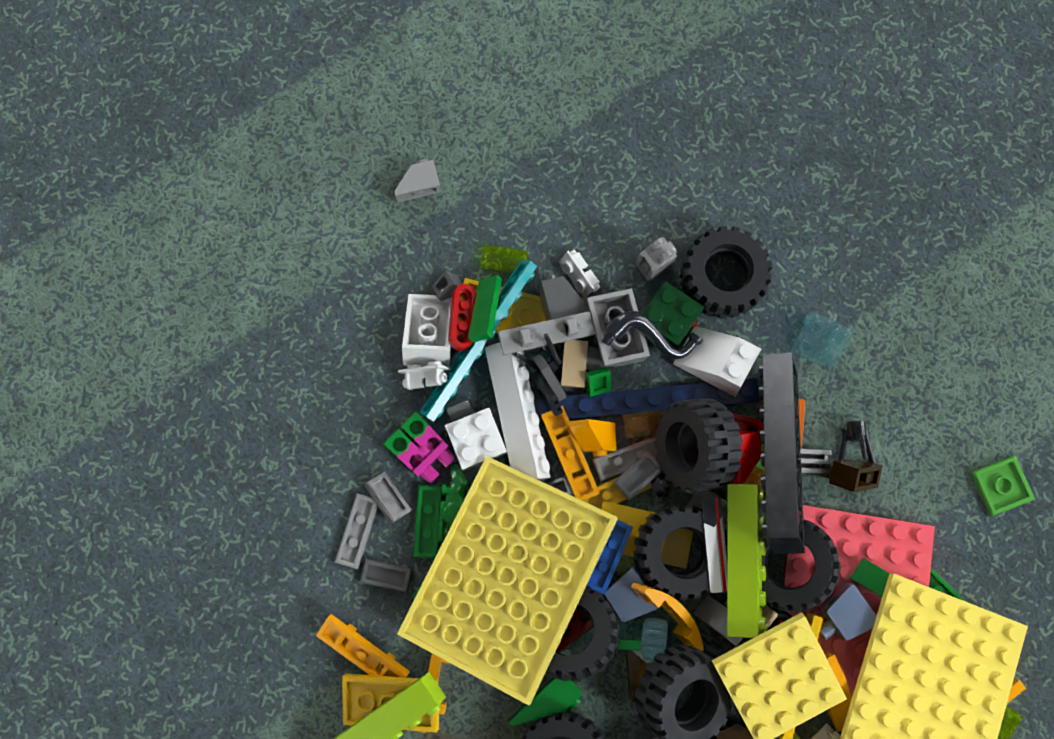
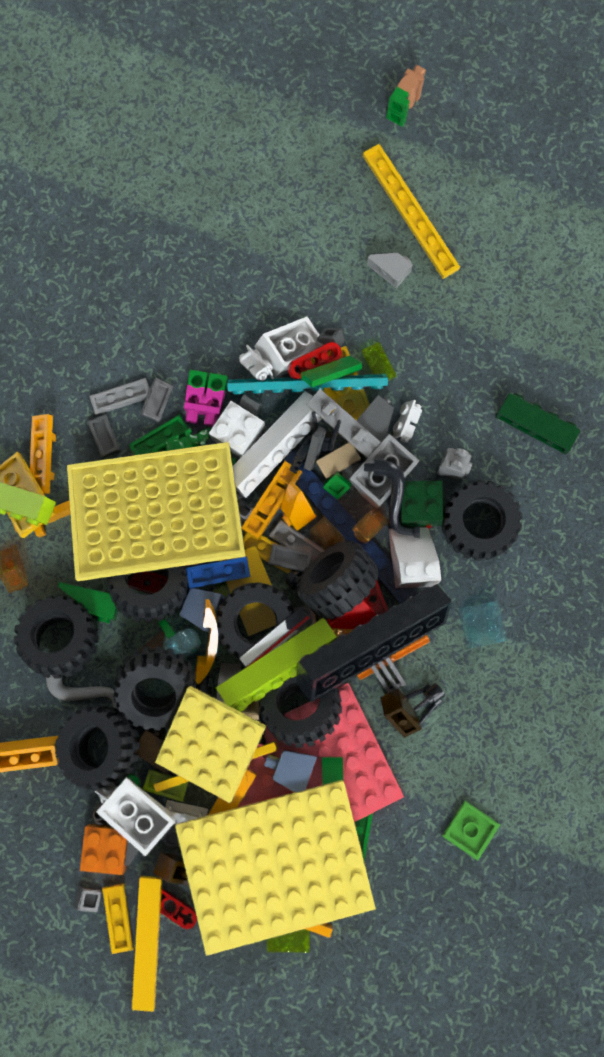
camera: 60 degrees right, 0 degrees up
(258, 46) = (405, 95): none -> hips
(375, 124) = (411, 211): none -> yellow plate
(661, 378) = (369, 526): none -> clear orange slope
(666, 156) = (538, 423): none -> dark green brick

